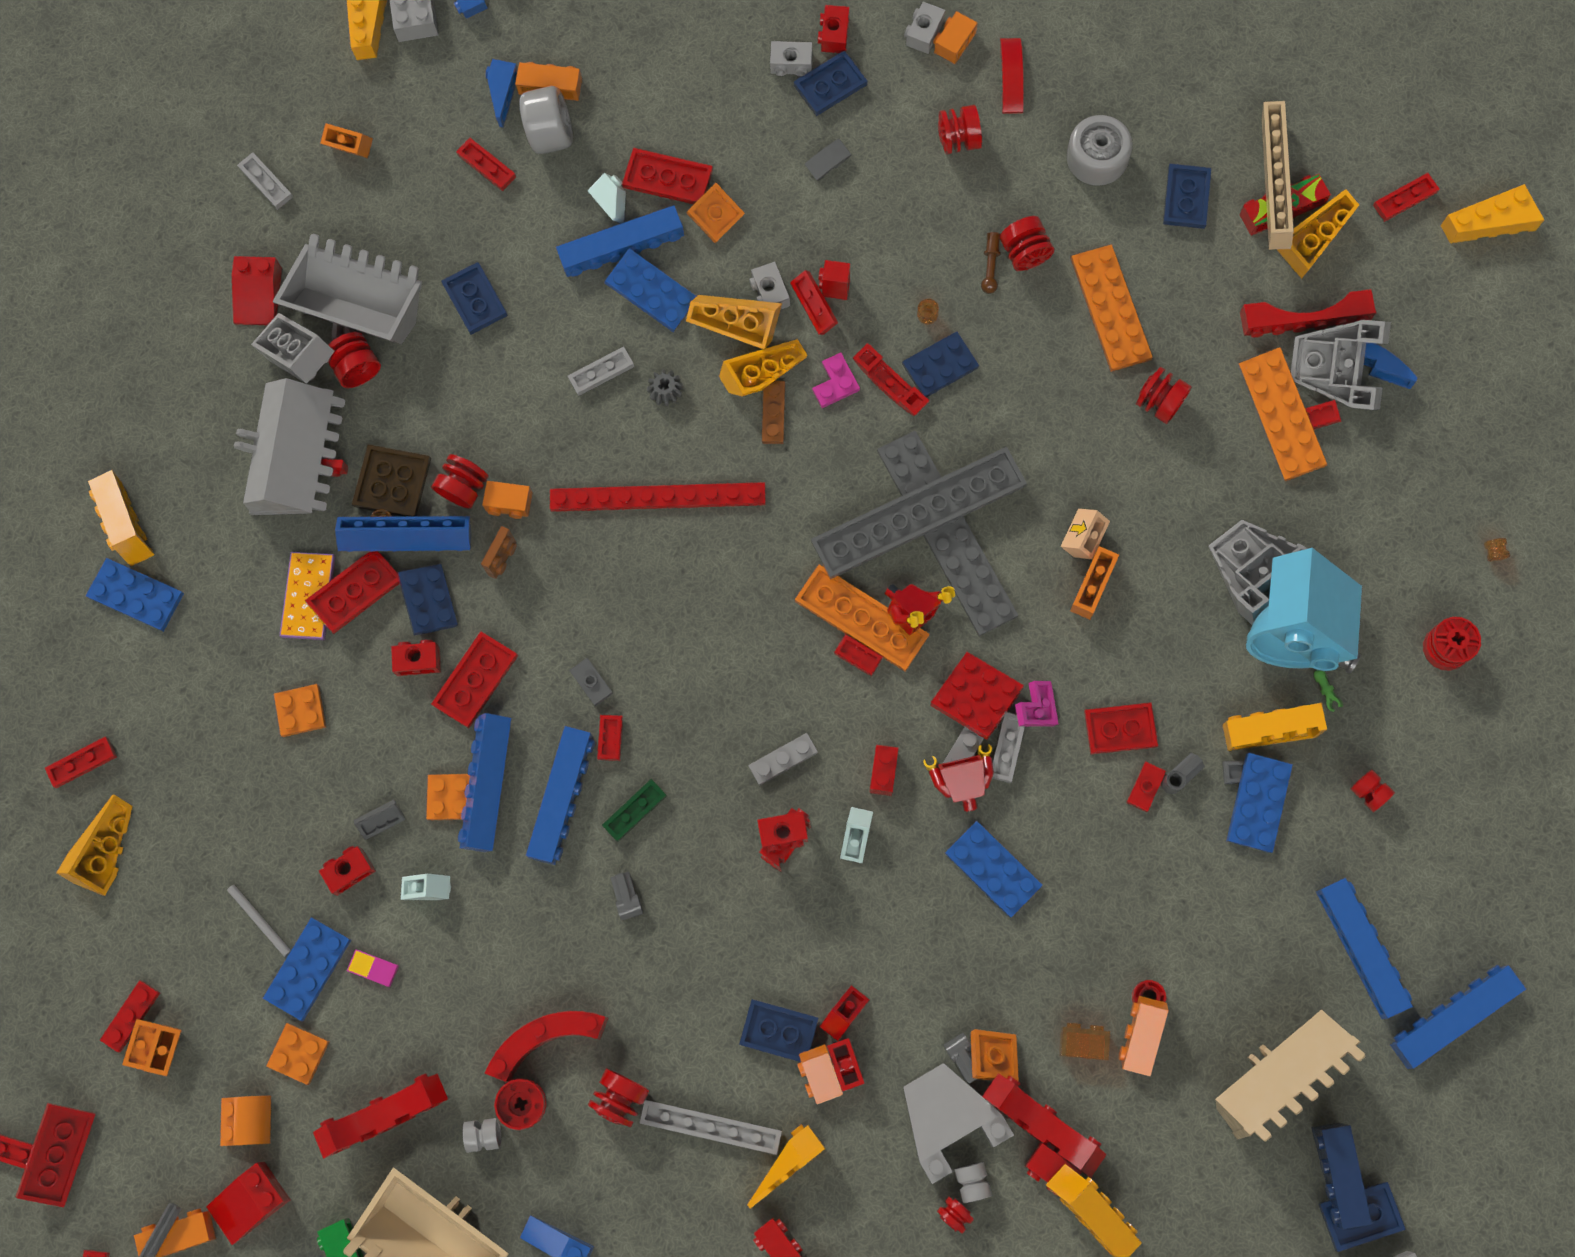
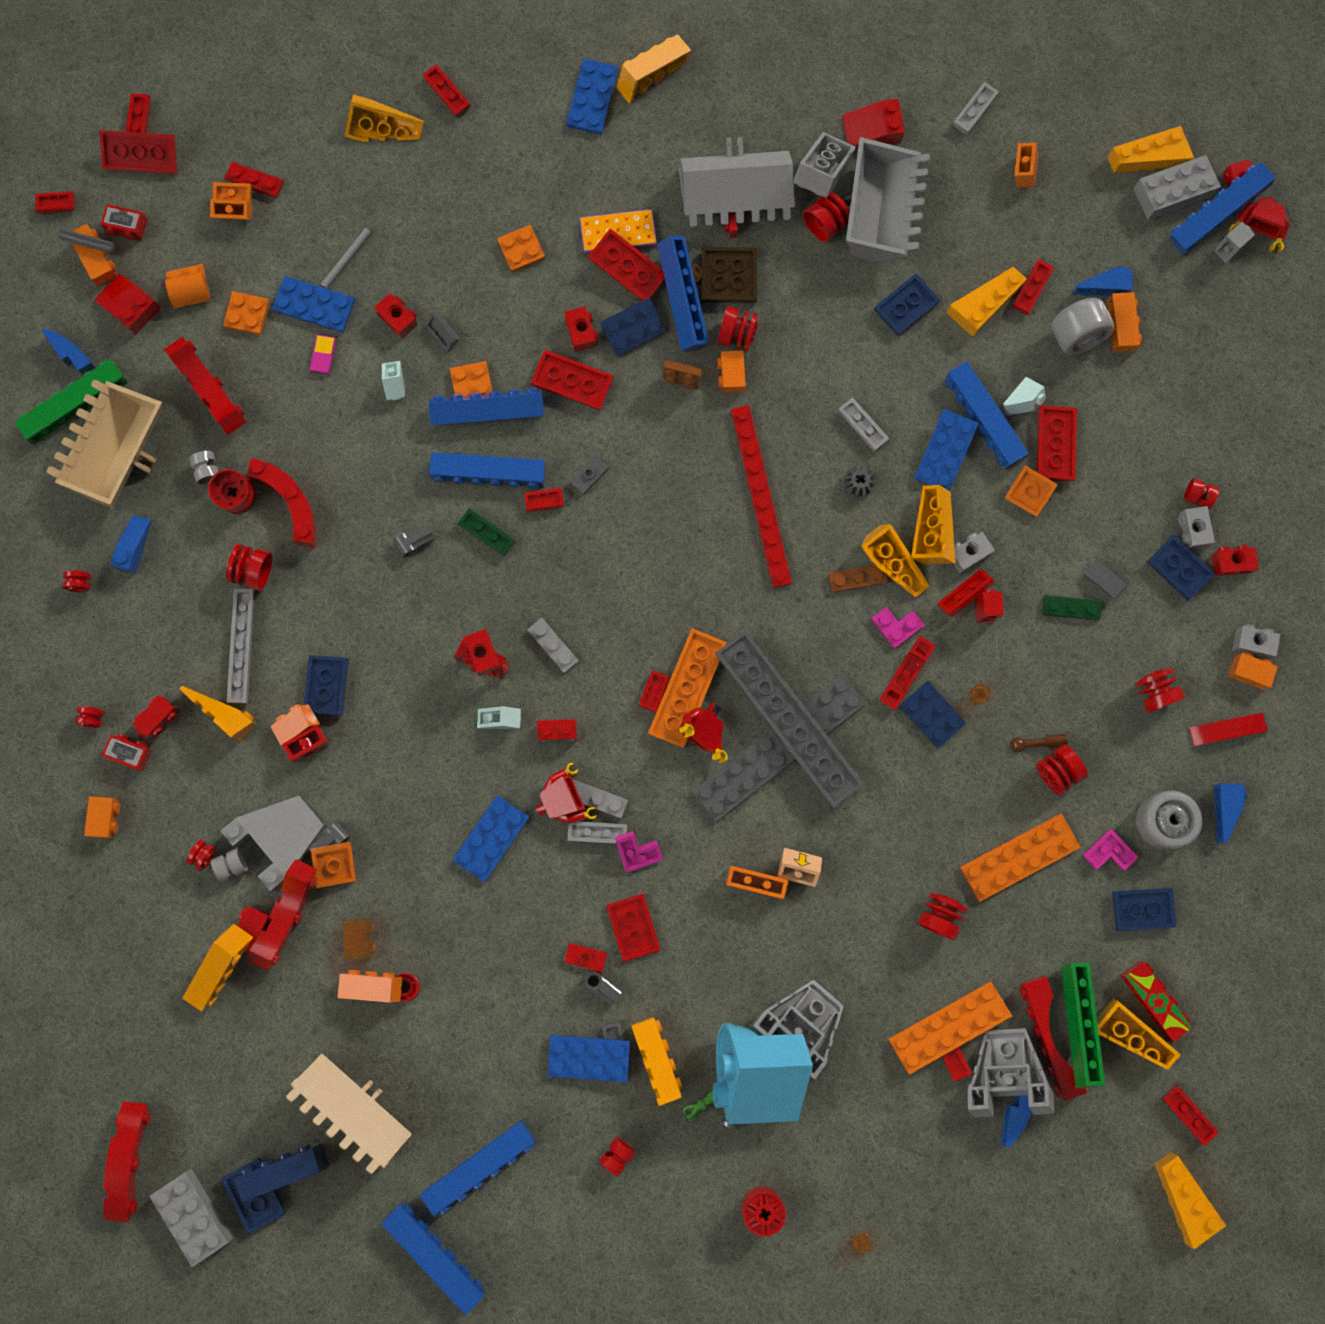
camera: 65 degrees right, 5 degrees up
(142, 1189) = (124, 222): none -> brick
(495, 219) = (980, 305): none -> light orange wedge
(754, 45) = (1195, 490): none -> red wheel
(844, 1013) = (349, 736): red slope -> none
(851, 200) = (1071, 607): none -> dark green plate
(977, 695) = (637, 798): red plate -> none
(1095, 92) = (1228, 806): none -> blue slope
(1116, 215) = (1112, 847): none -> dark pink plate
(1277, 175) = (1179, 987): tan brick -> none
(1301, 277) = (1082, 1025): none -> green brick

